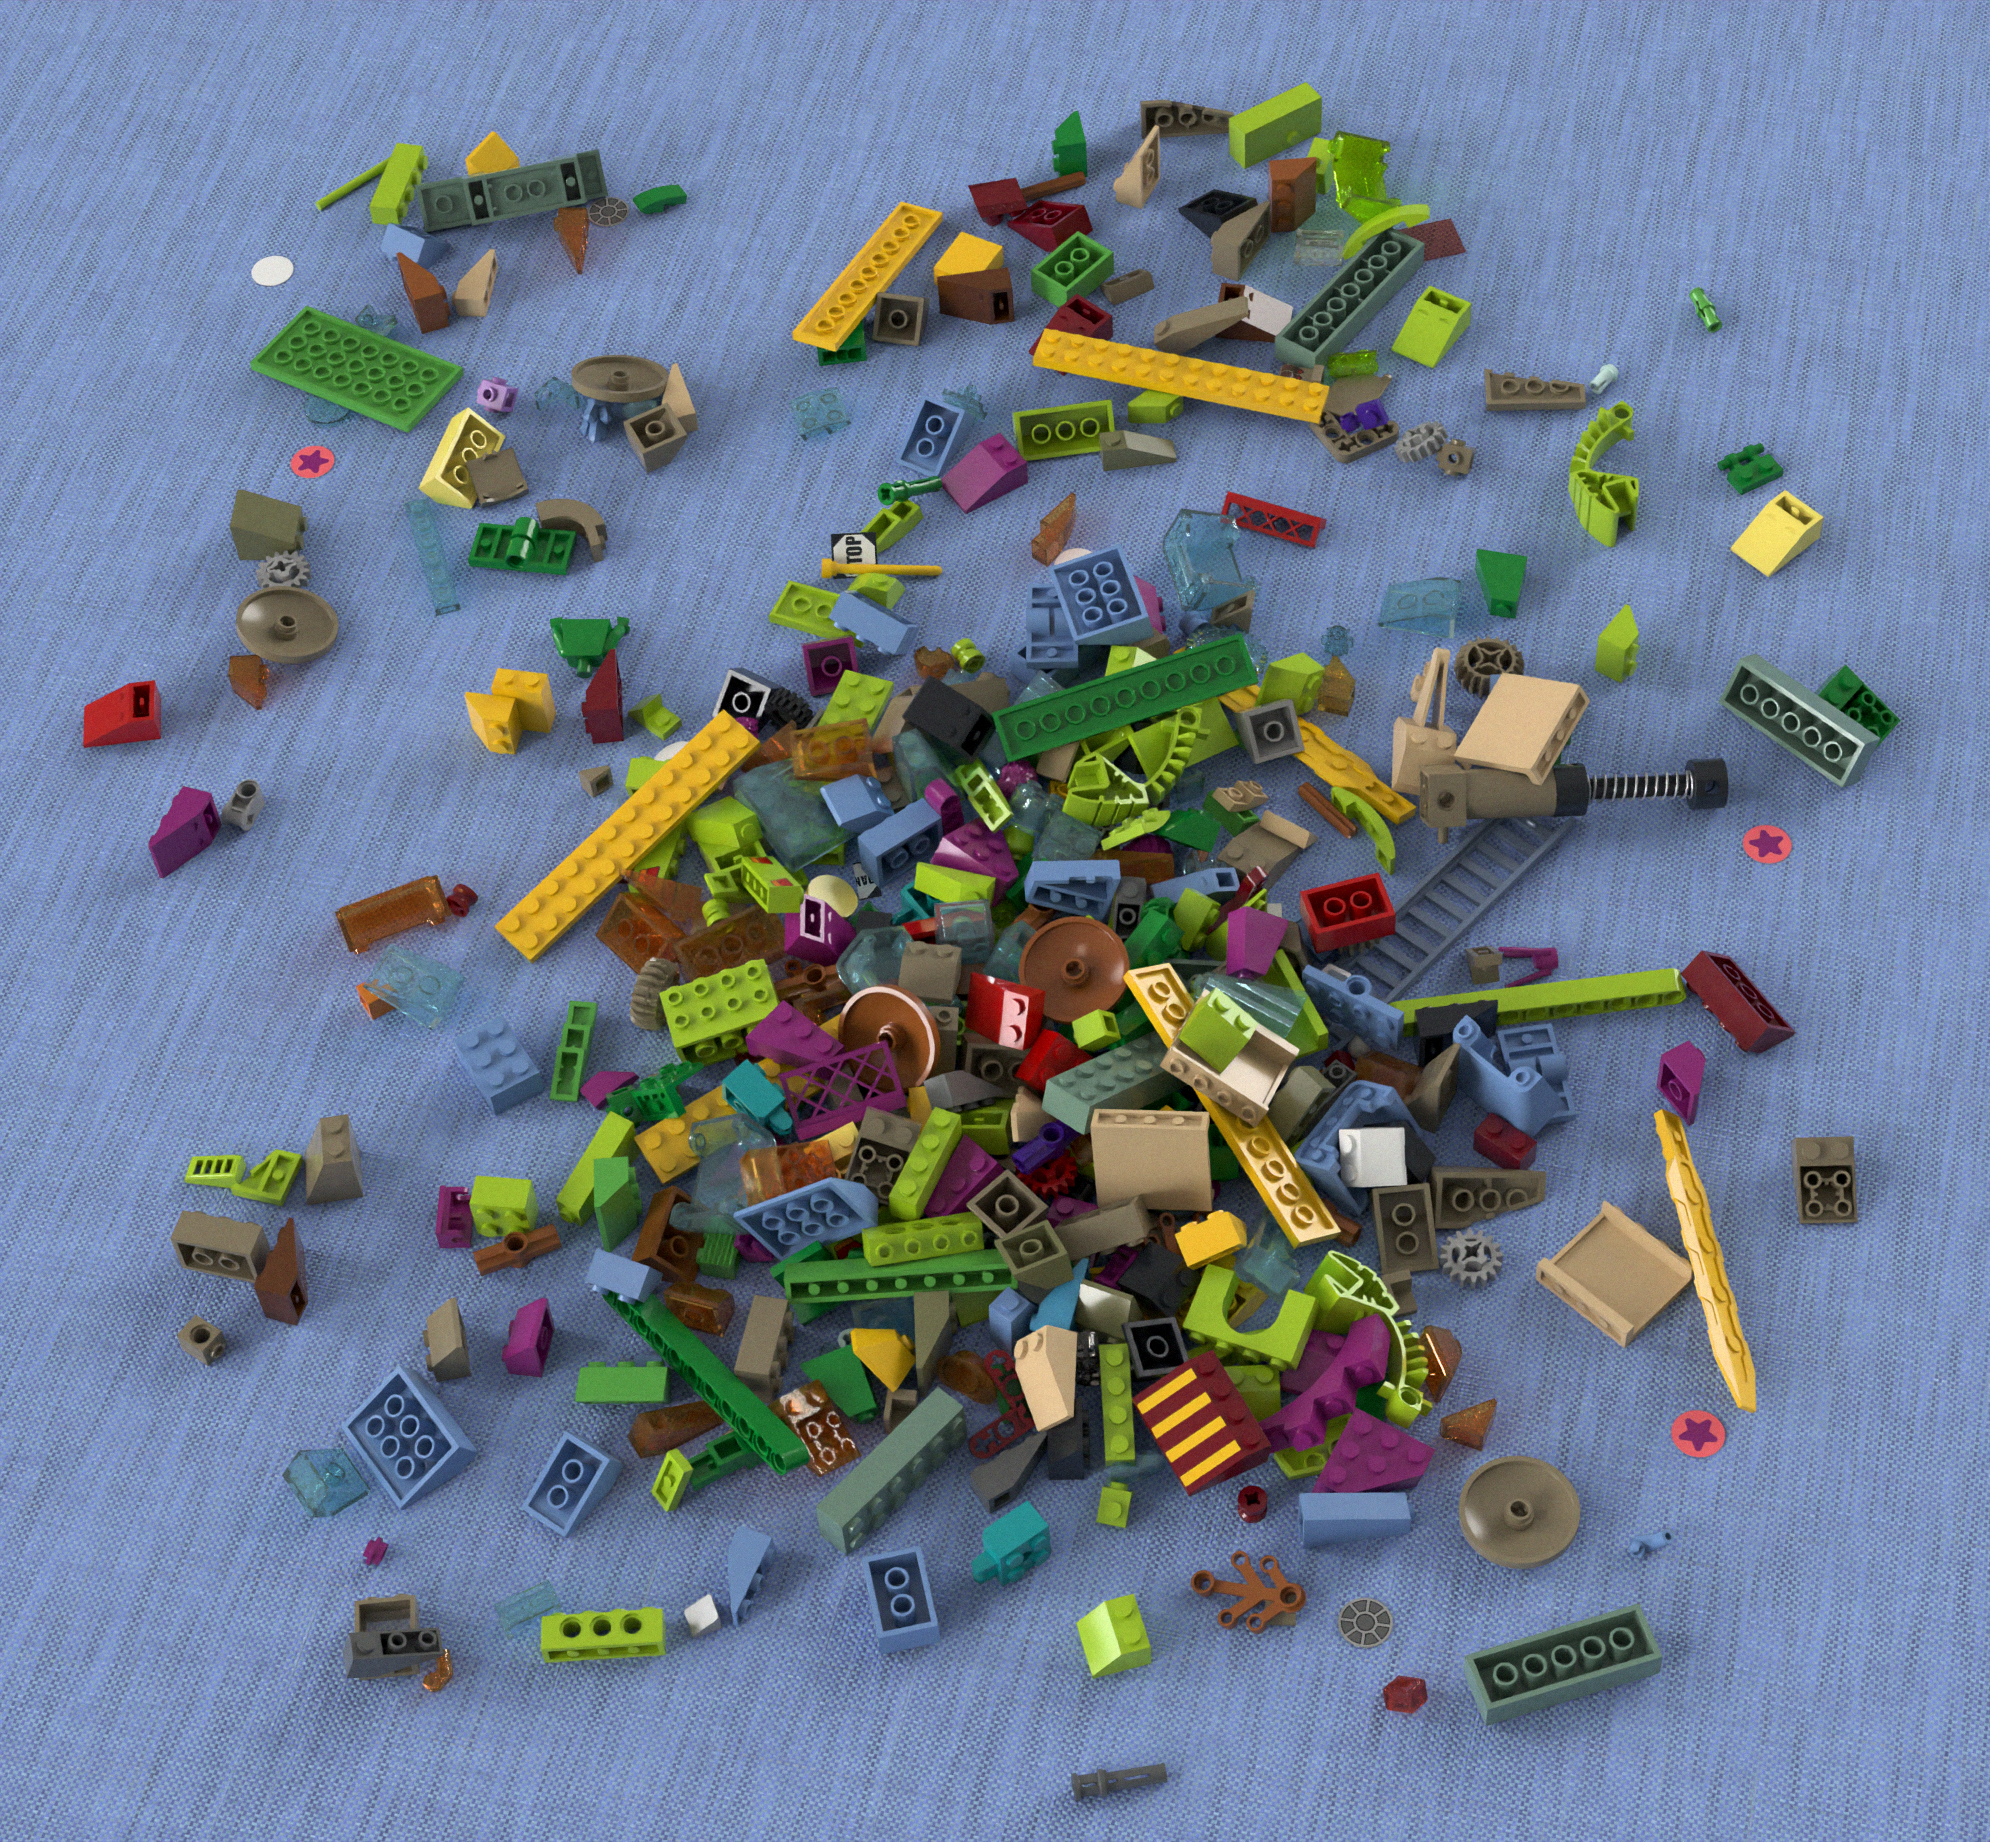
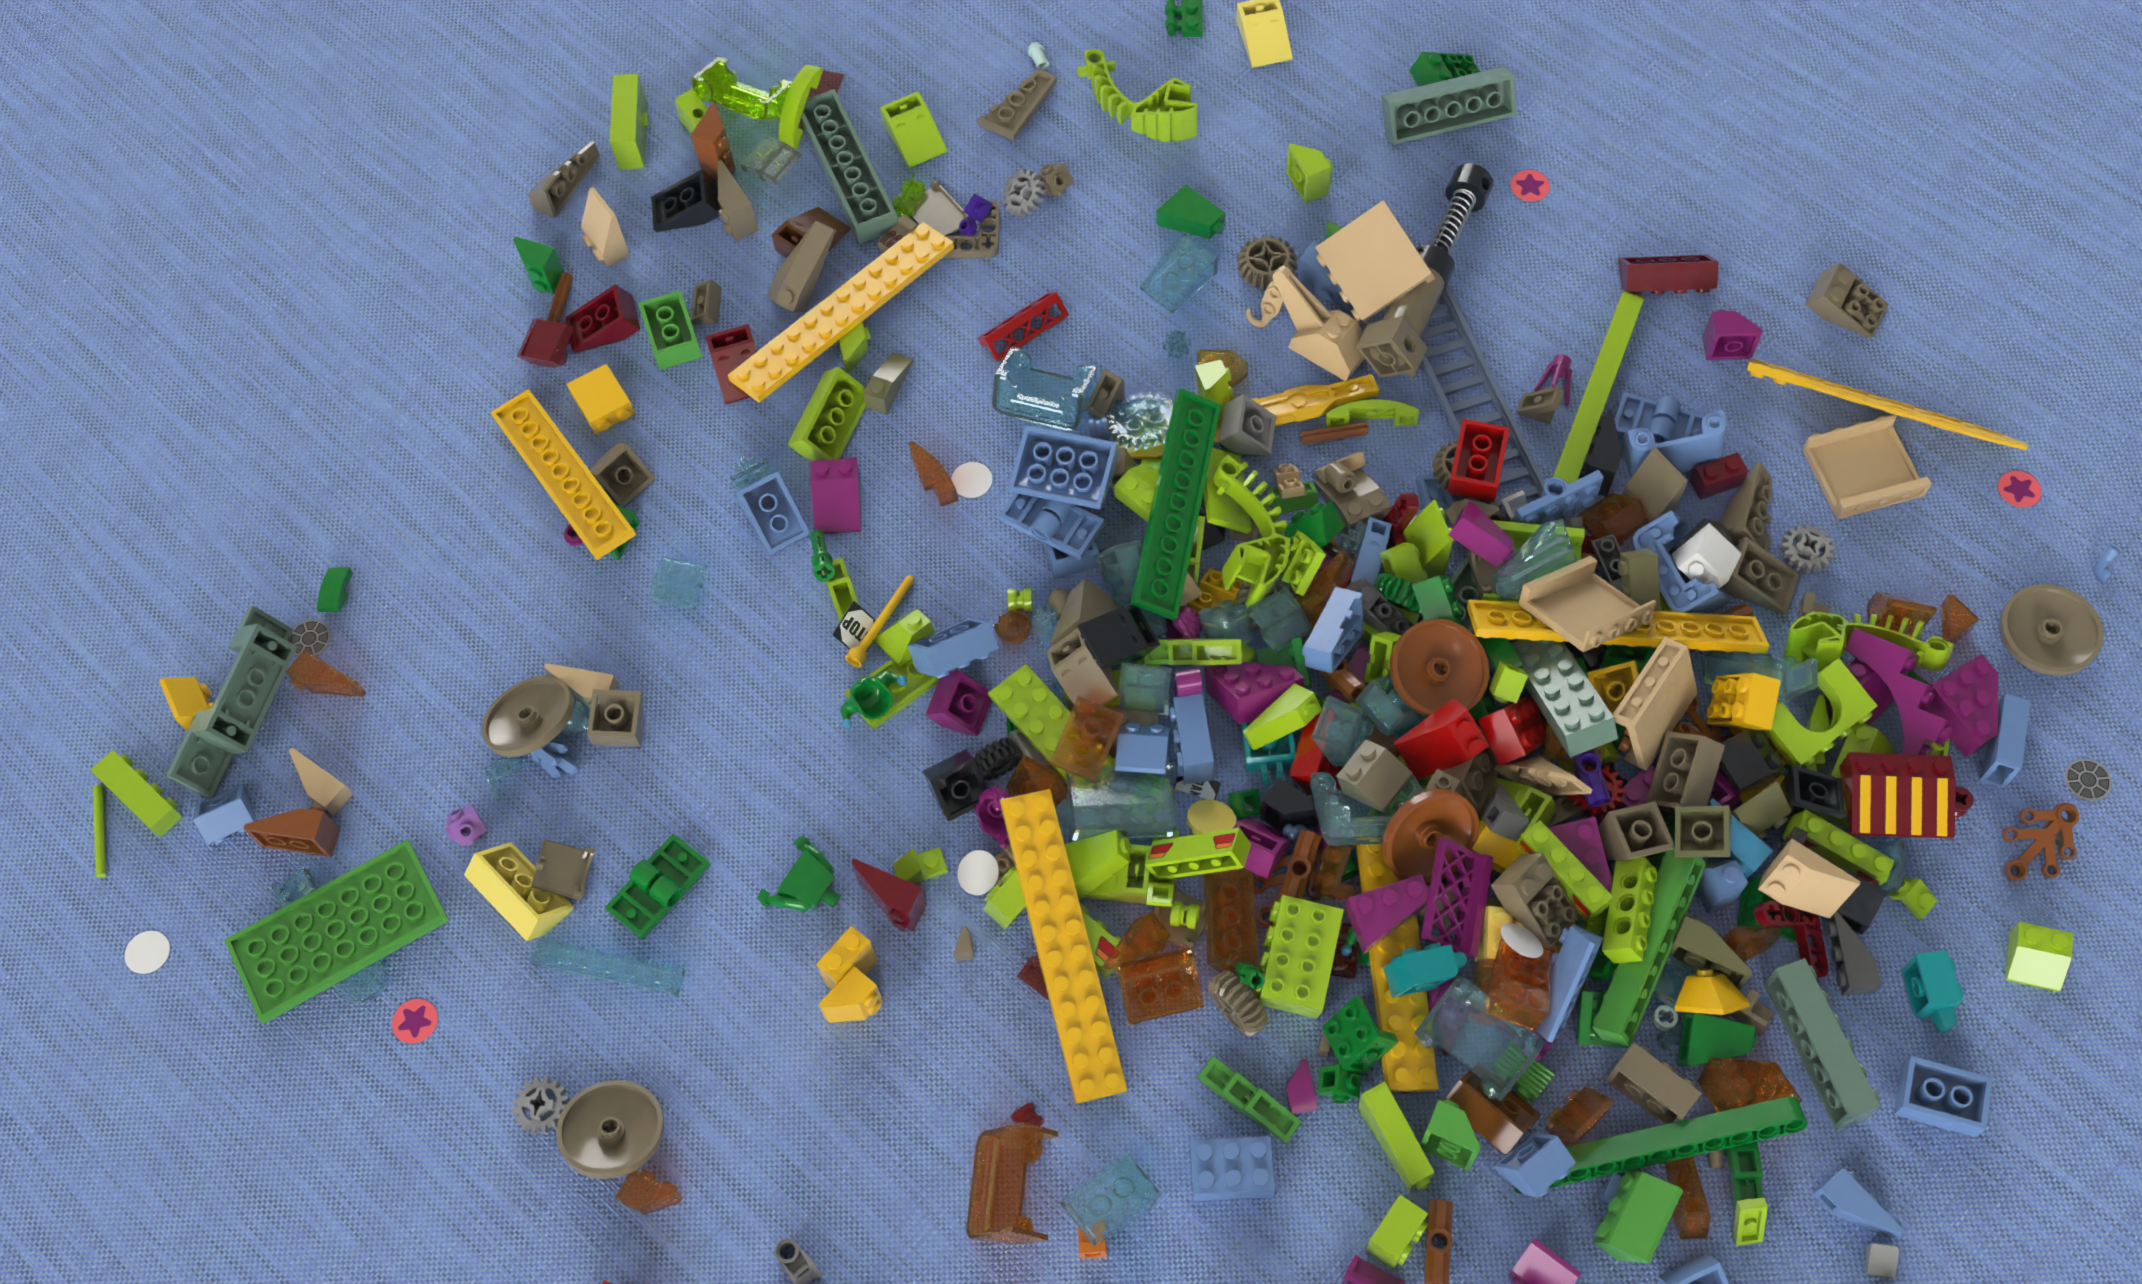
camera: 60 degrees left, 10 degrees up
(266, 526) = (479, 1094): olive slope -> none
(575, 516) = (659, 823): dark tan arch -> none
(673, 974) = (1249, 975): none -> green pin
(790, 593) = (870, 697): none -> green piece
(826, 1154) = (1521, 940): none -> white sticker
(978, 296) = (648, 404): reddish brown slope -> none
(1218, 1029) = (1565, 595): lime slope -> none
(1265, 827) = (1340, 477): none -> dark tan brick

